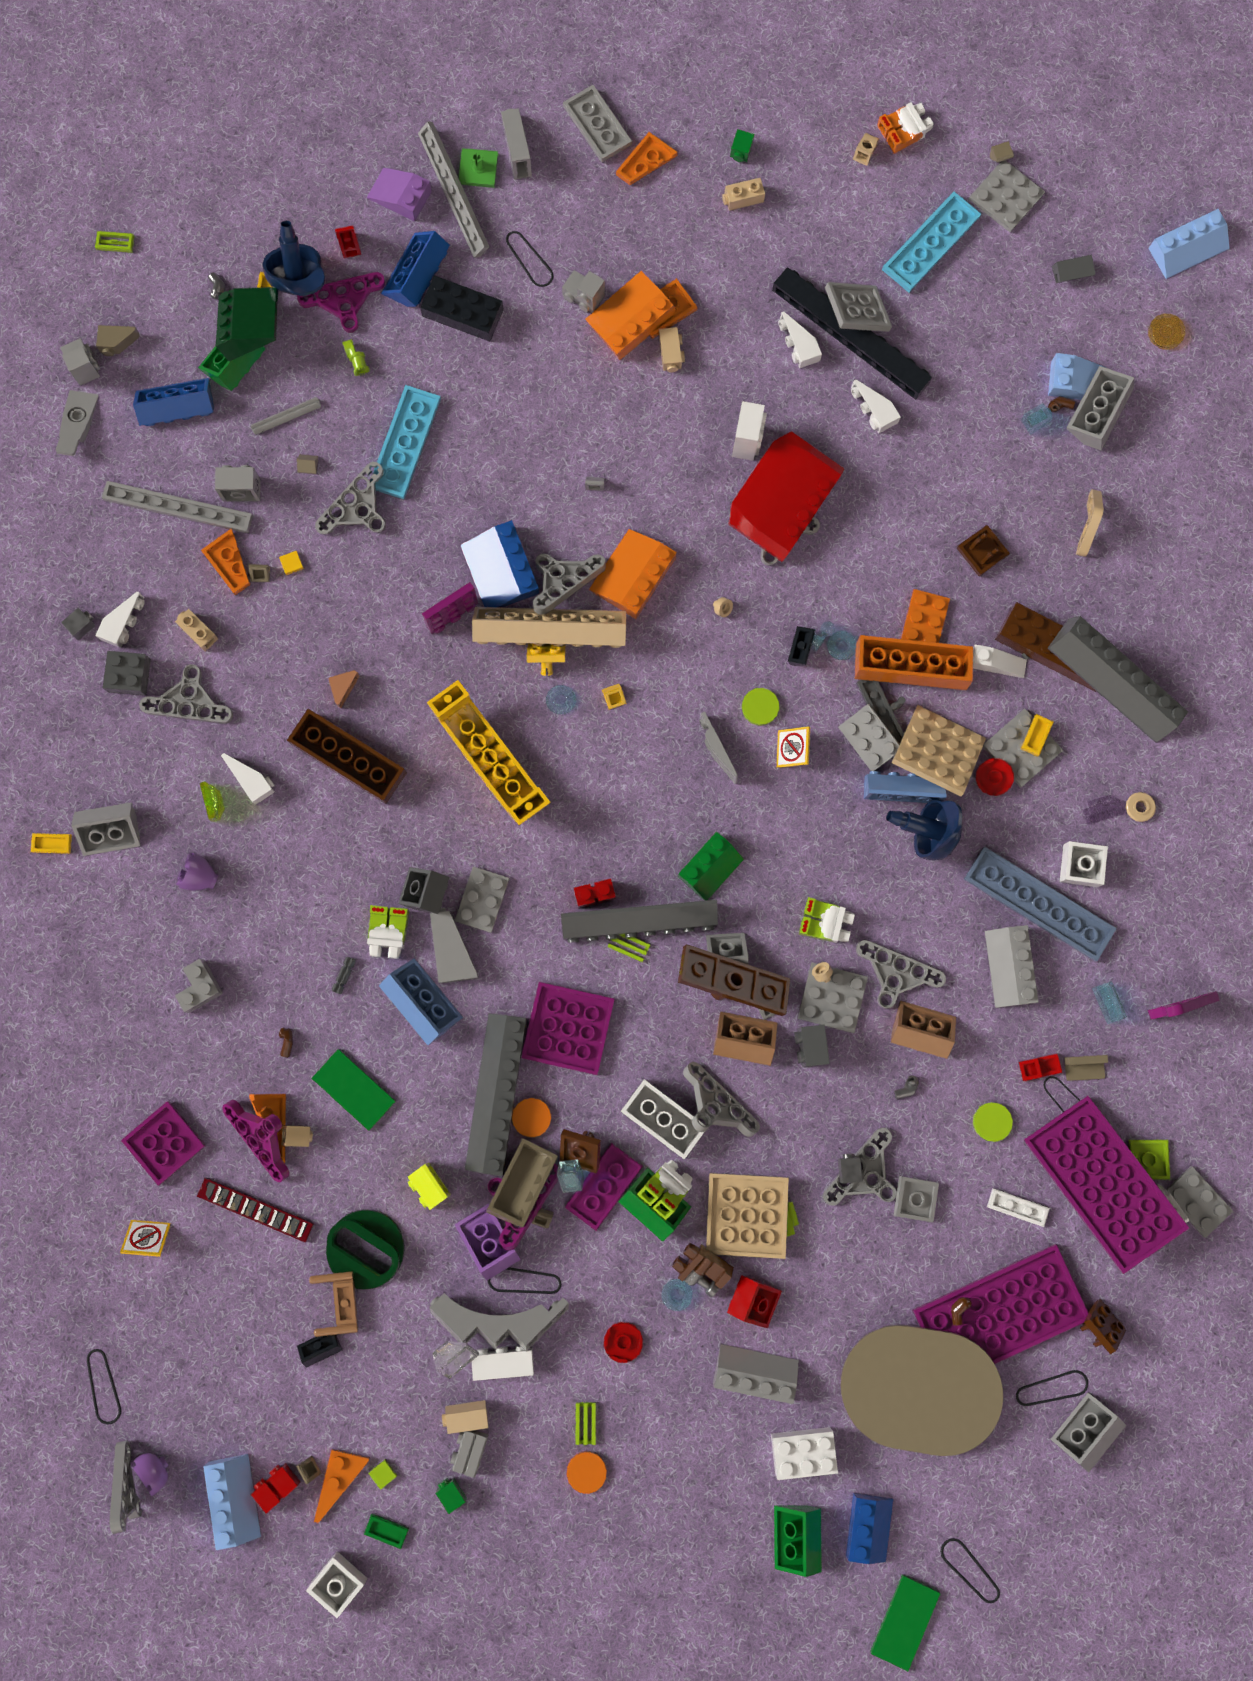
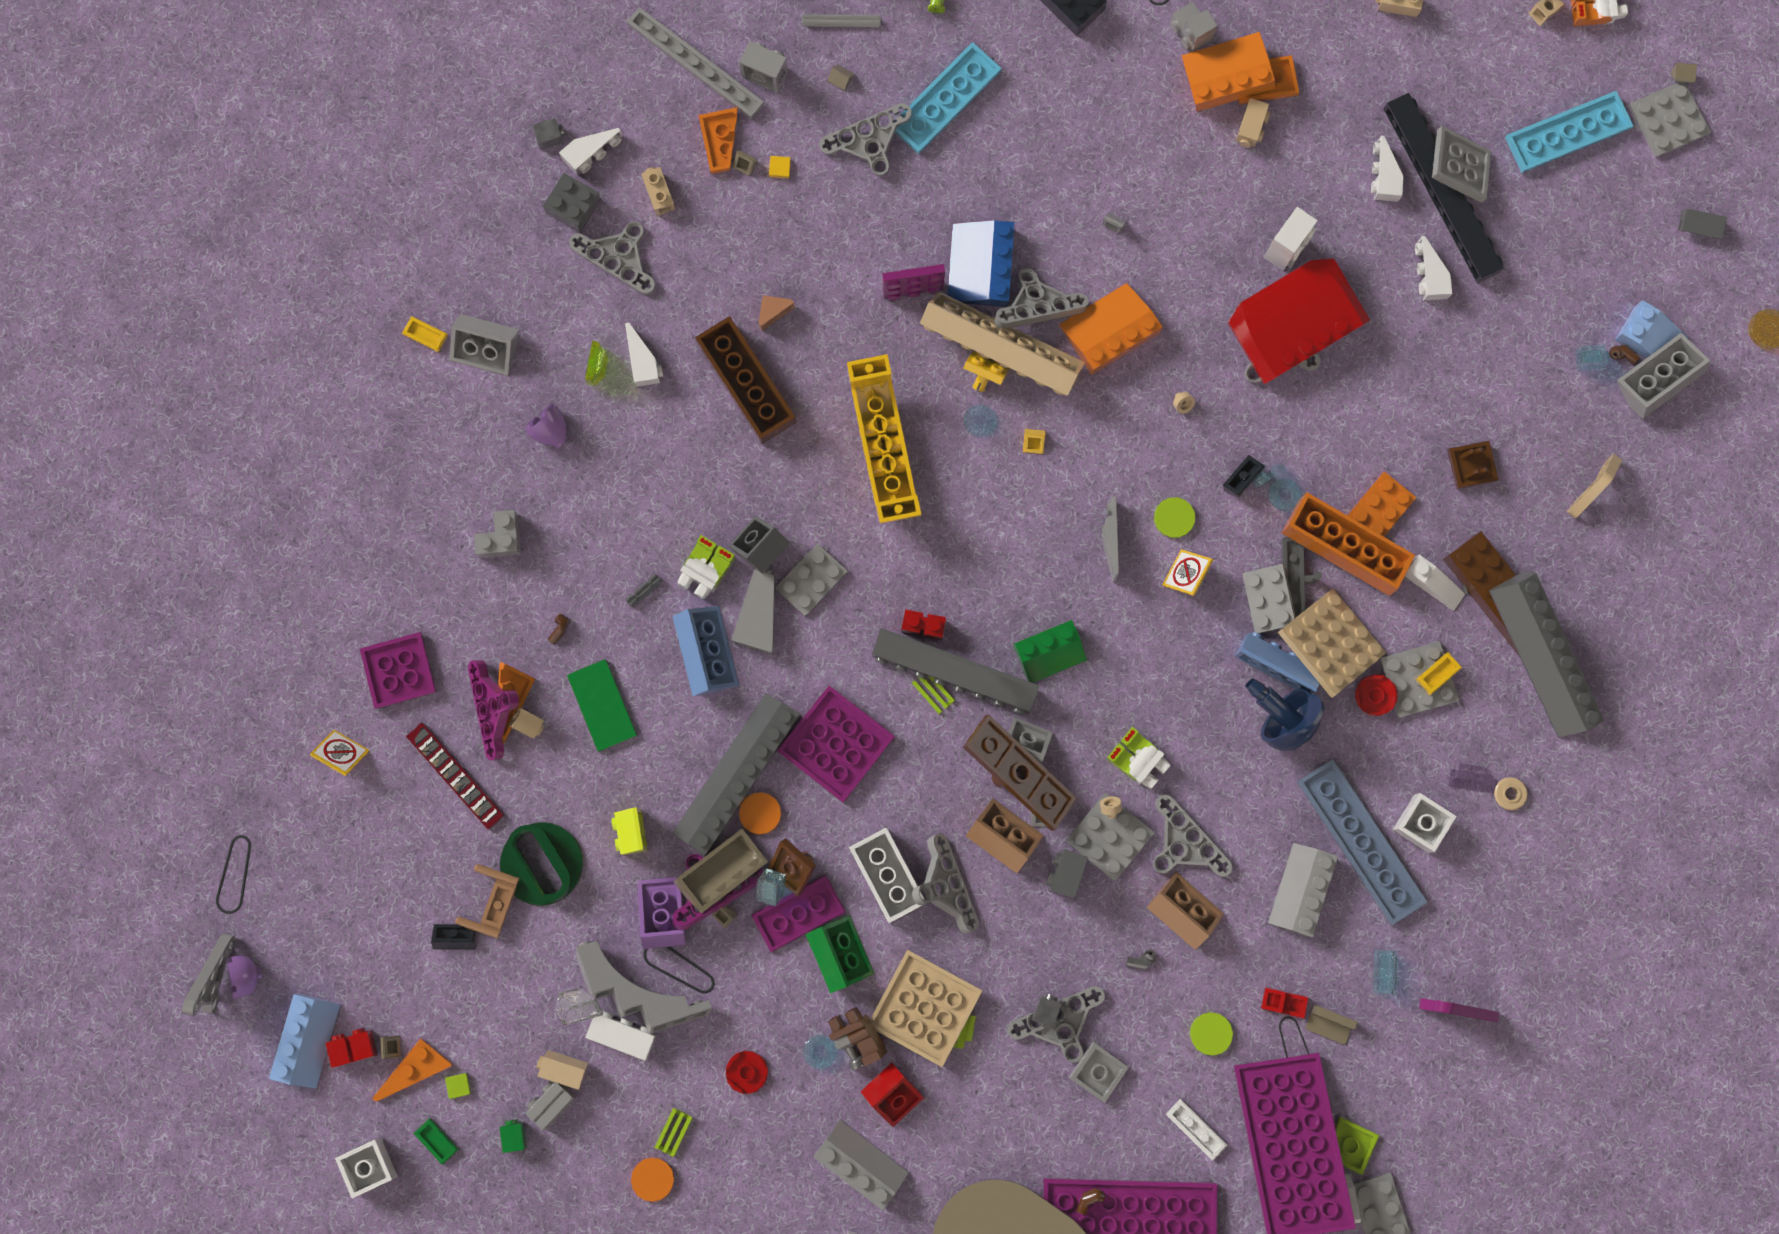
camera: 30 degrees right, 0 degrees up
(669, 1183) = (864, 941): hips -> none

